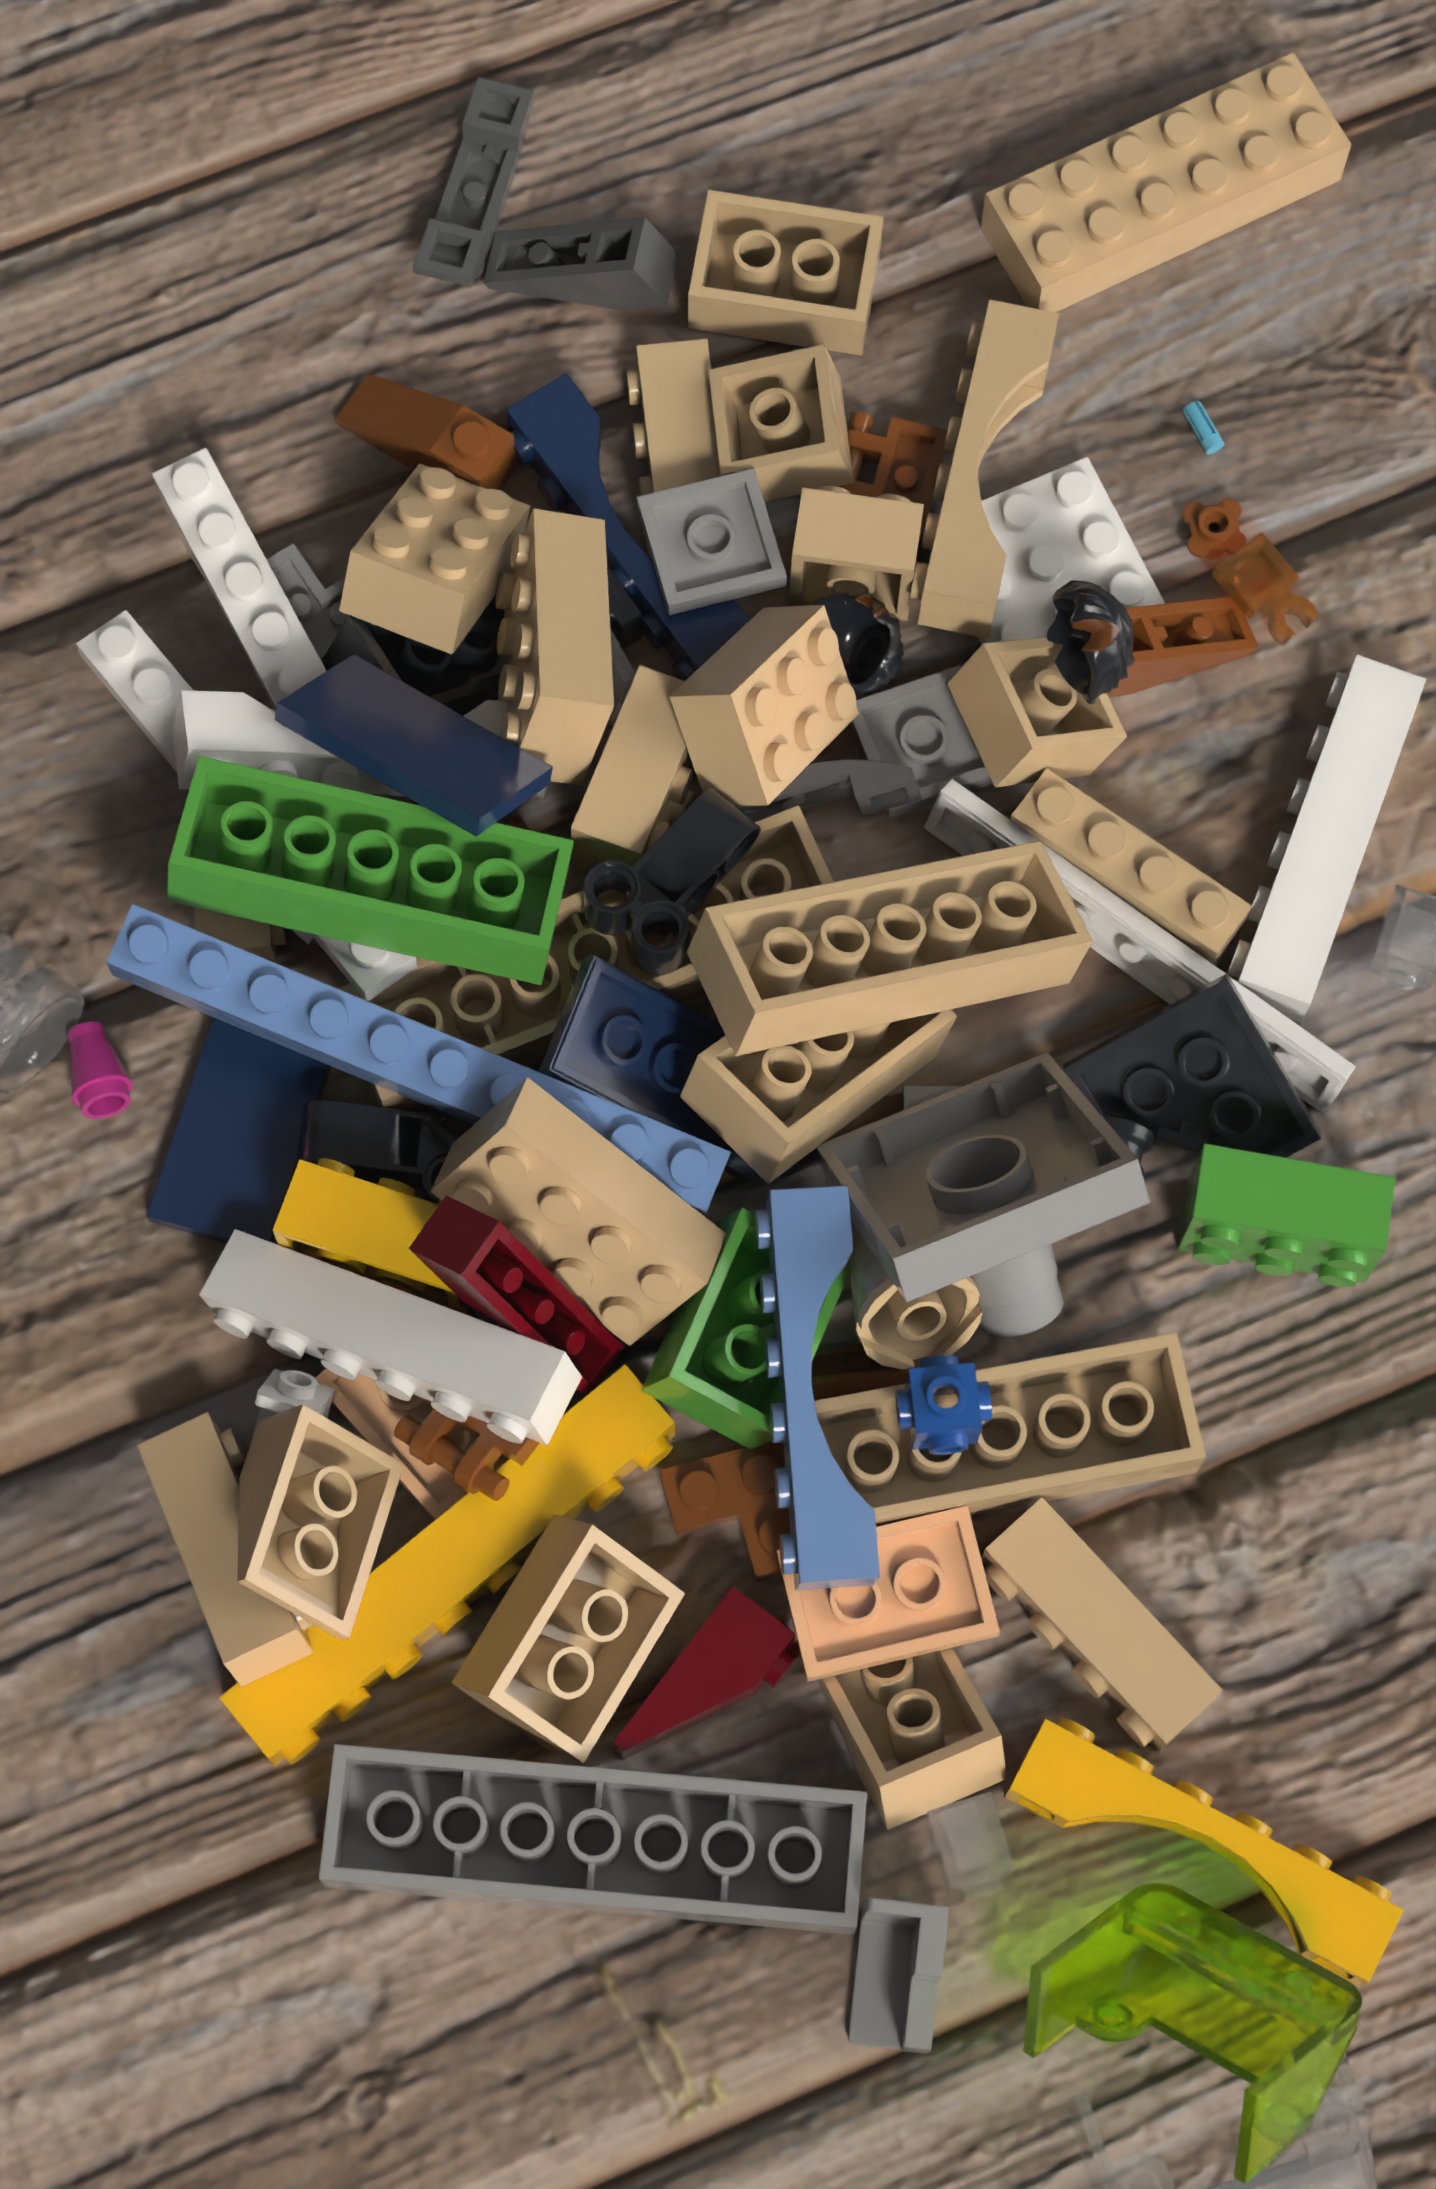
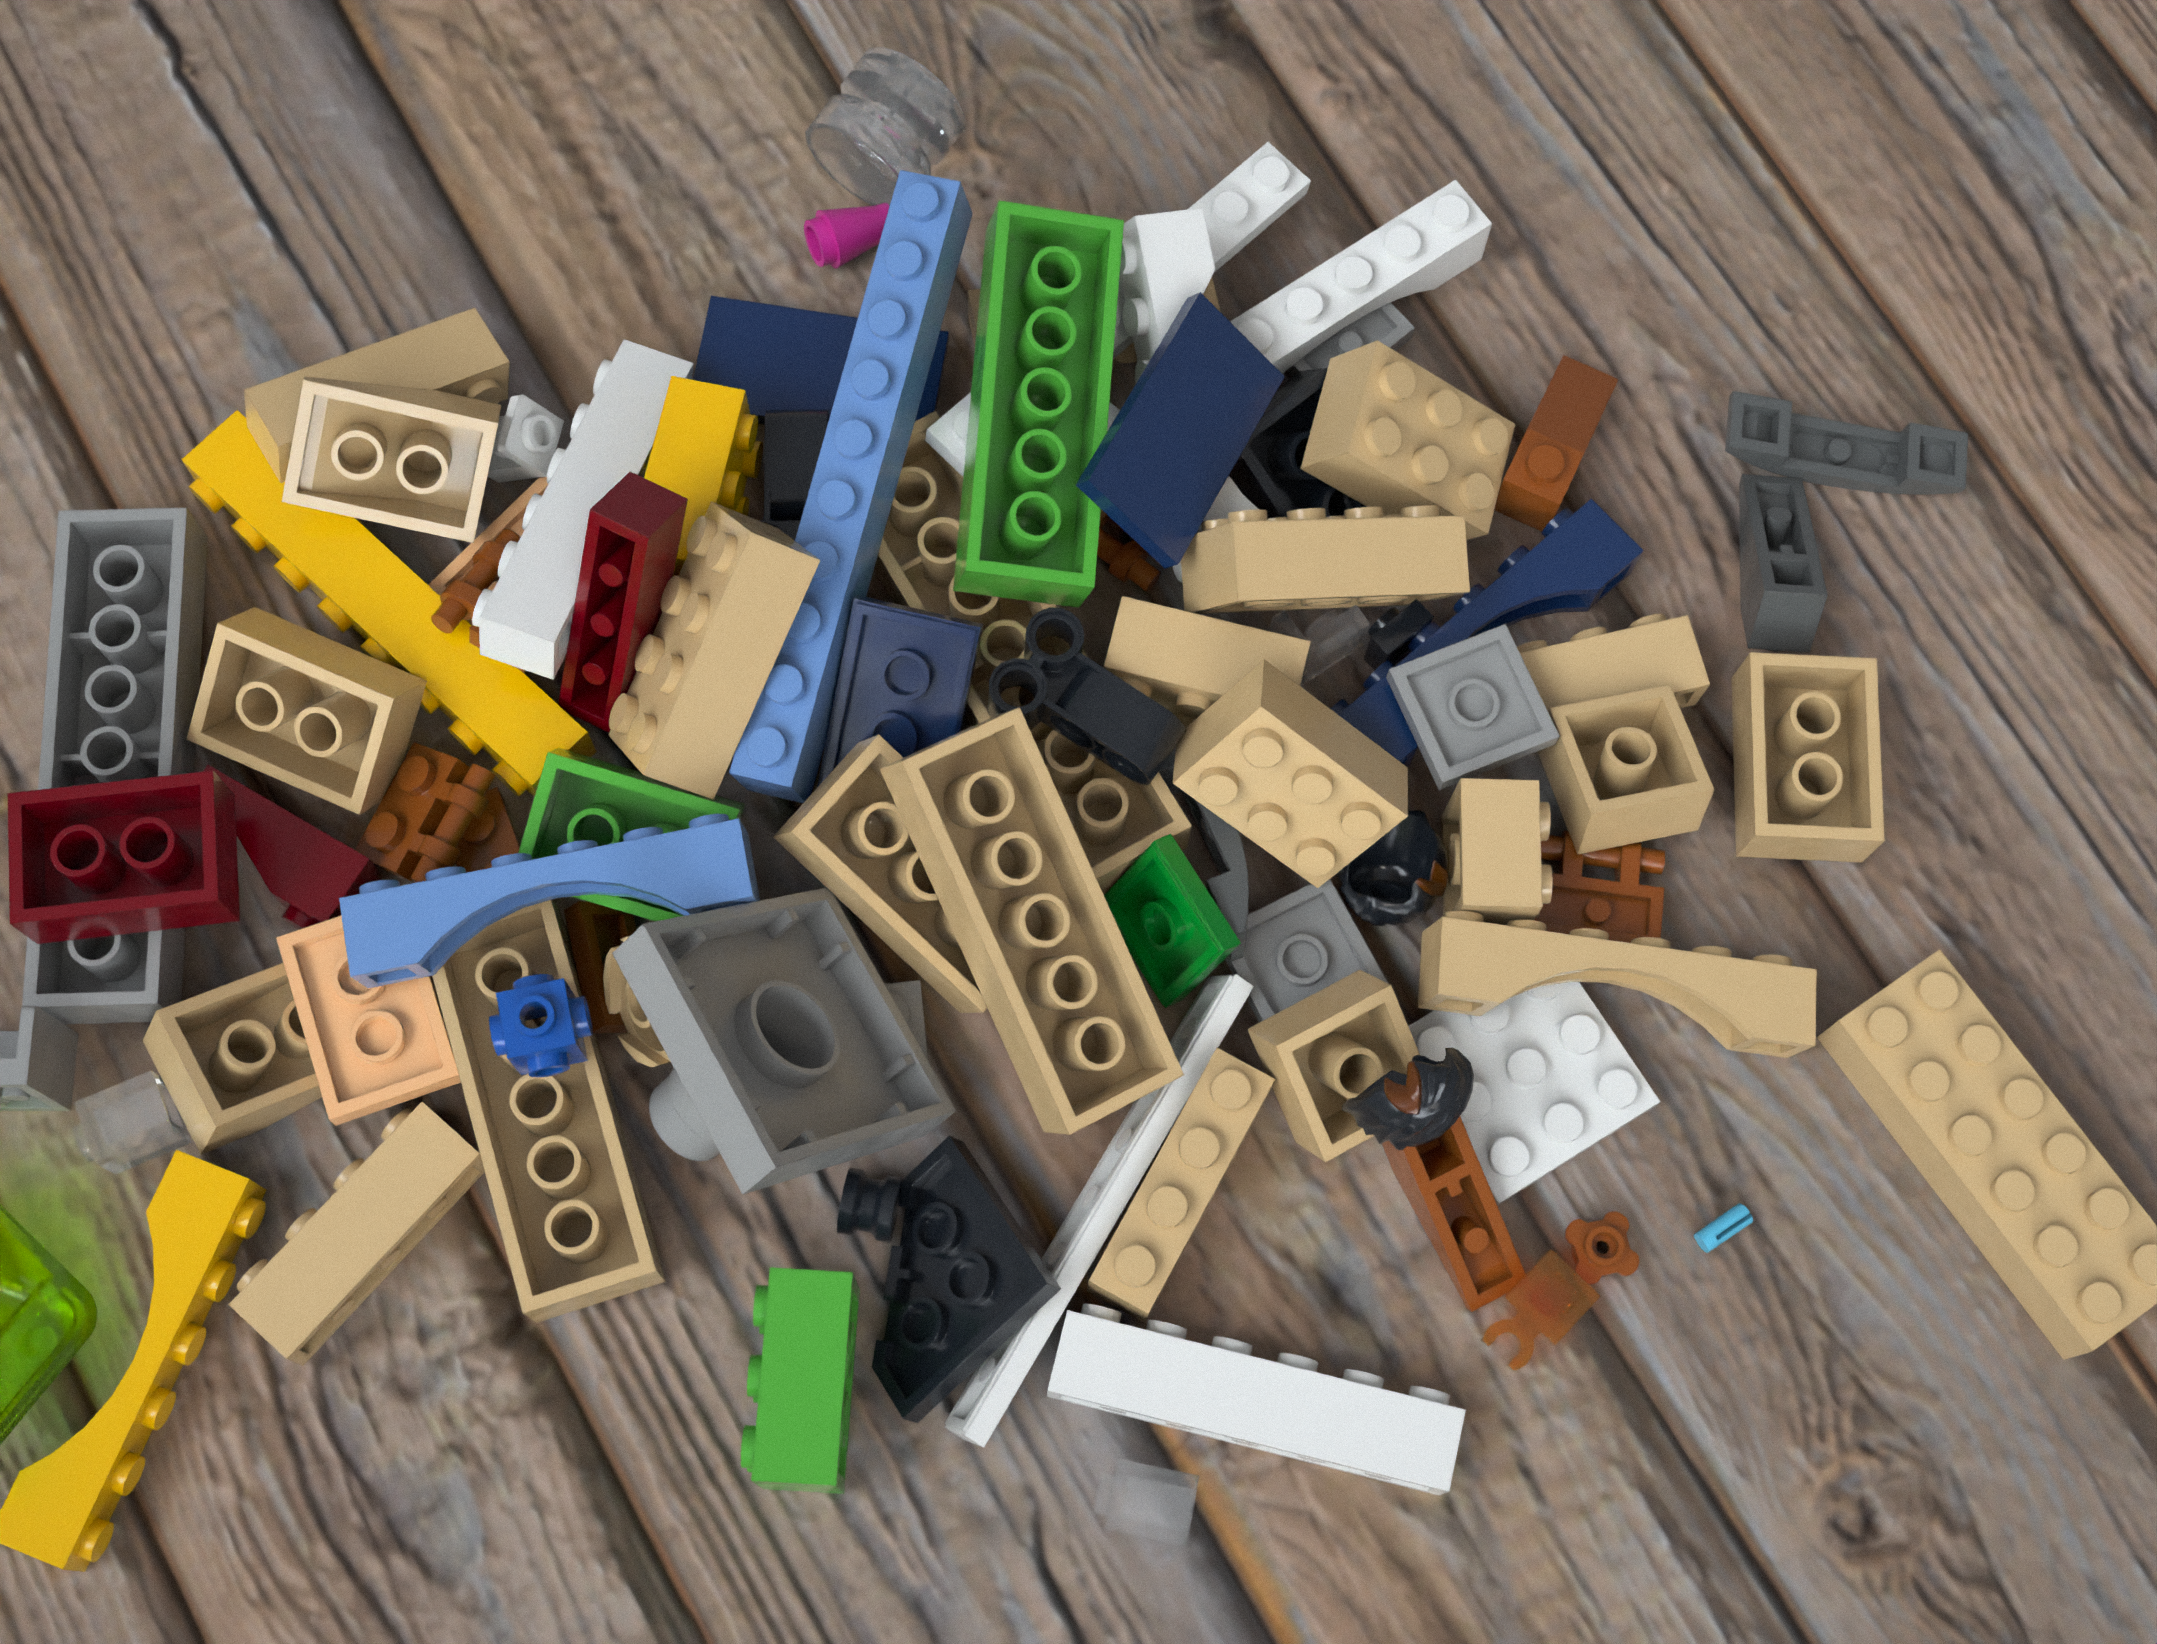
camera: 80 degrees right, 0 degrees up
(679, 1548) = (425, 814): none -> dark orange plate
(729, 1797) = (122, 857): none -> dark red brick
(883, 830) = (1169, 921): none -> green tile

